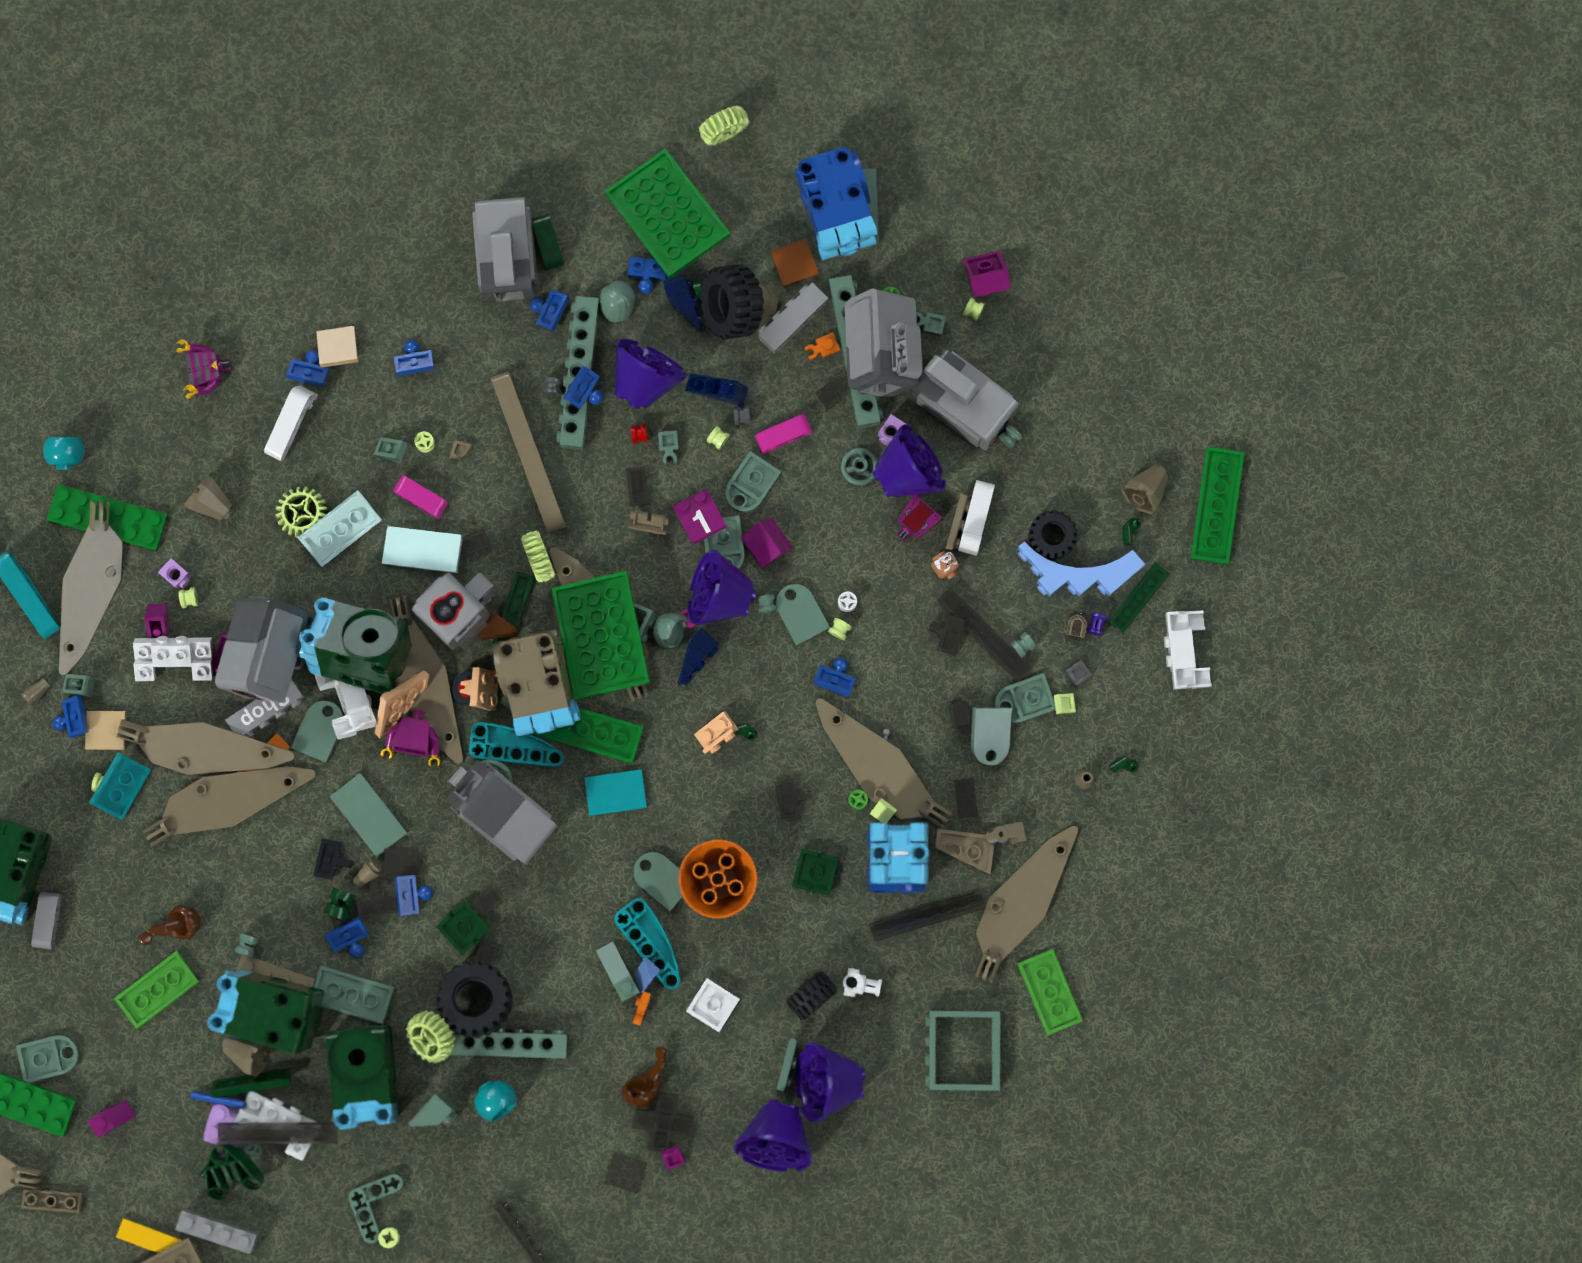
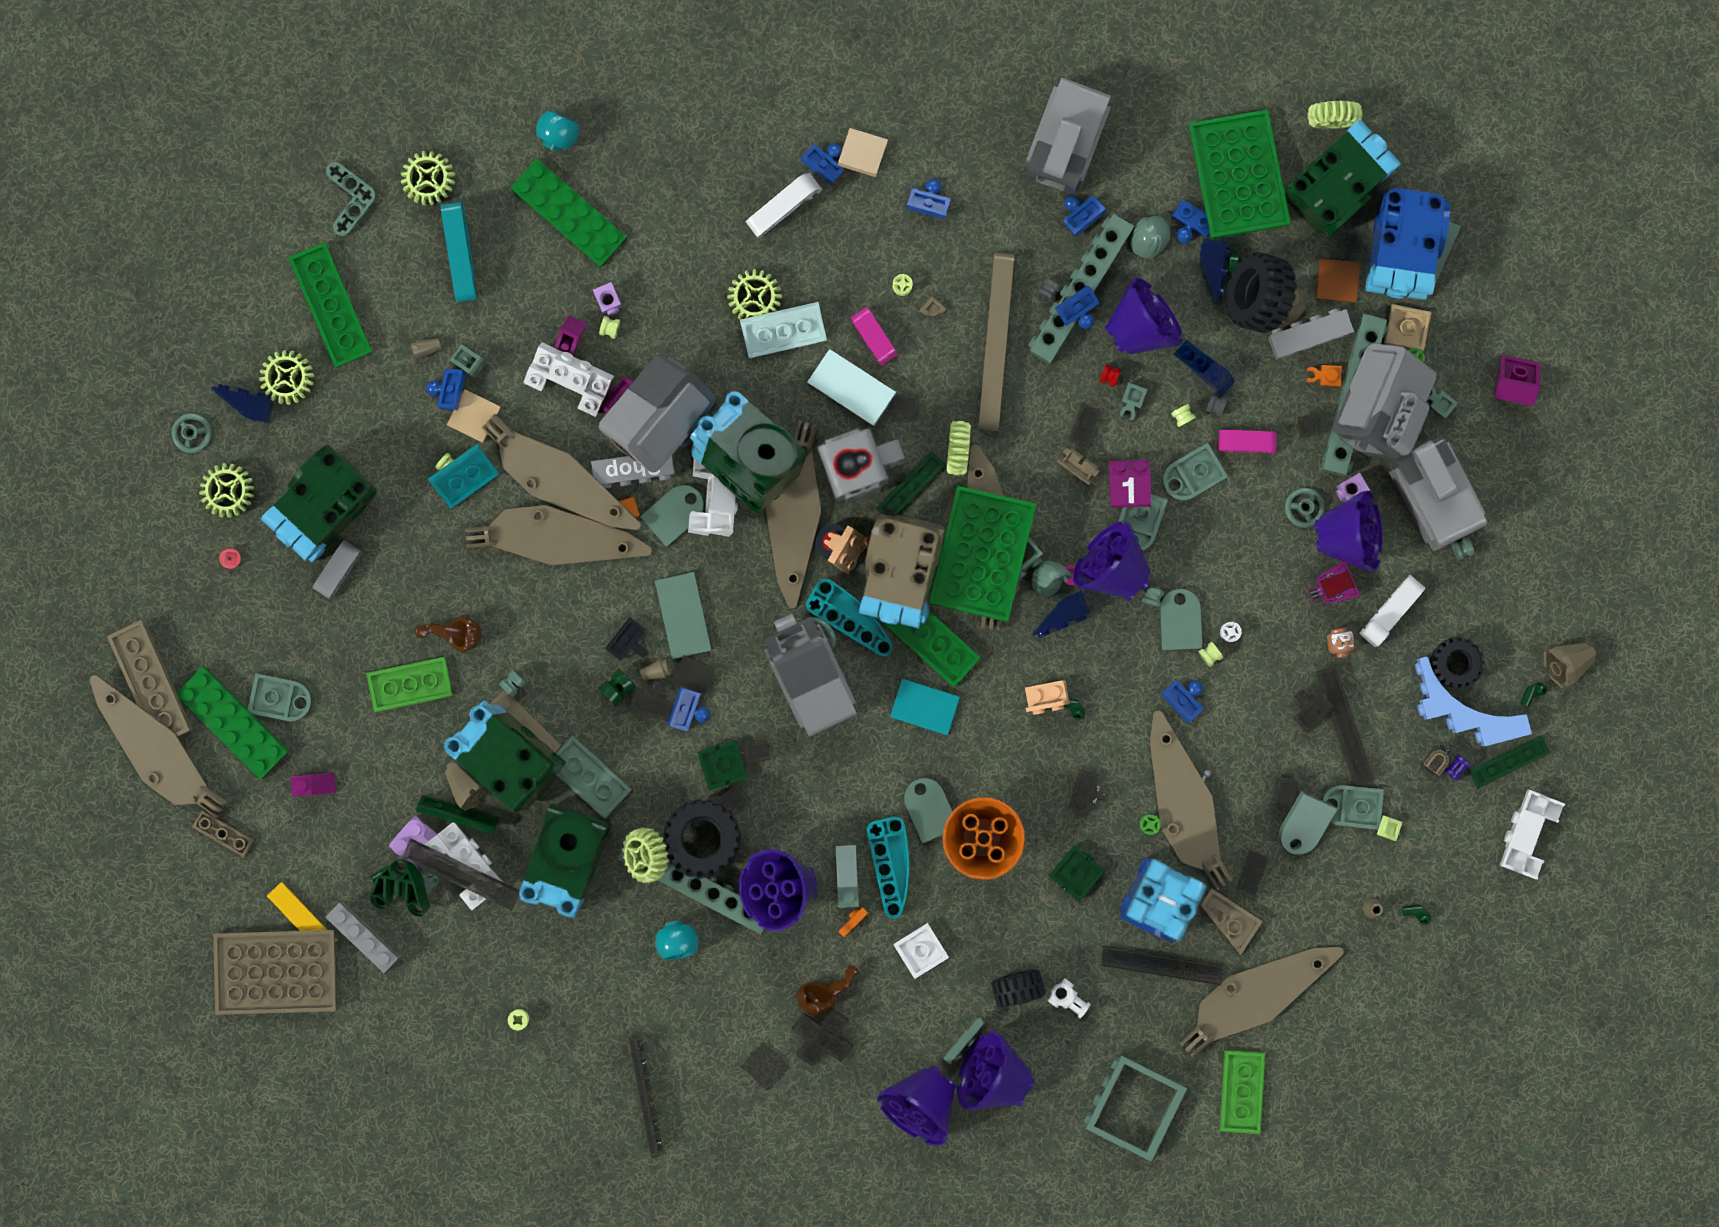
camera: 30 degrees right, 5 degrees up
(88, 585) = (521, 270): dark tan wing -> none
(203, 368) = (725, 112): torso -> none
(209, 500) = (673, 243): dark tan cone -> none
(218, 1100) = (420, 816): blue bar -> none
(348, 935) = (611, 720): blue plate -> none
(367, 1197) = (516, 972): sand green beam -> none
(391, 449) = (867, 277): sand green slope -> none
(399, 701) = (762, 523): light nougat plate -> none
(413, 737) = (759, 563): magenta torso -> none
(436, 1112) = (616, 928): sand green slope -> none
(497, 628) = (888, 498): reddish brown slope -> none
(547, 242) = (1111, 147): dark green beam -> none
(559, 1010) = (776, 889): none -> dark purple cone
(645, 974) = (872, 892): medium blue slope -> none
(673, 1157) = (816, 1074): magenta tile -> none
(754, 176) = (1341, 179): none -> dark green piece
(766, 542) = (1181, 538): magenta slope -> none
(872, 272) = (1407, 327): none -> tan tile
(883, 811) = (1168, 847): yellowish green tile -> none
(958, 523) = (1372, 607): dark tan tile -> none
(973, 309) = (1487, 408): yellowish green wheel -> none
(1000, 834) = (1268, 923): dark tan leg -> none
(1023, 645) = (1377, 754): sand green wheel -> none
(1078, 673) = (1417, 805): flat silver tile -> none
(1217, 505) = (1628, 710): green plate -> none

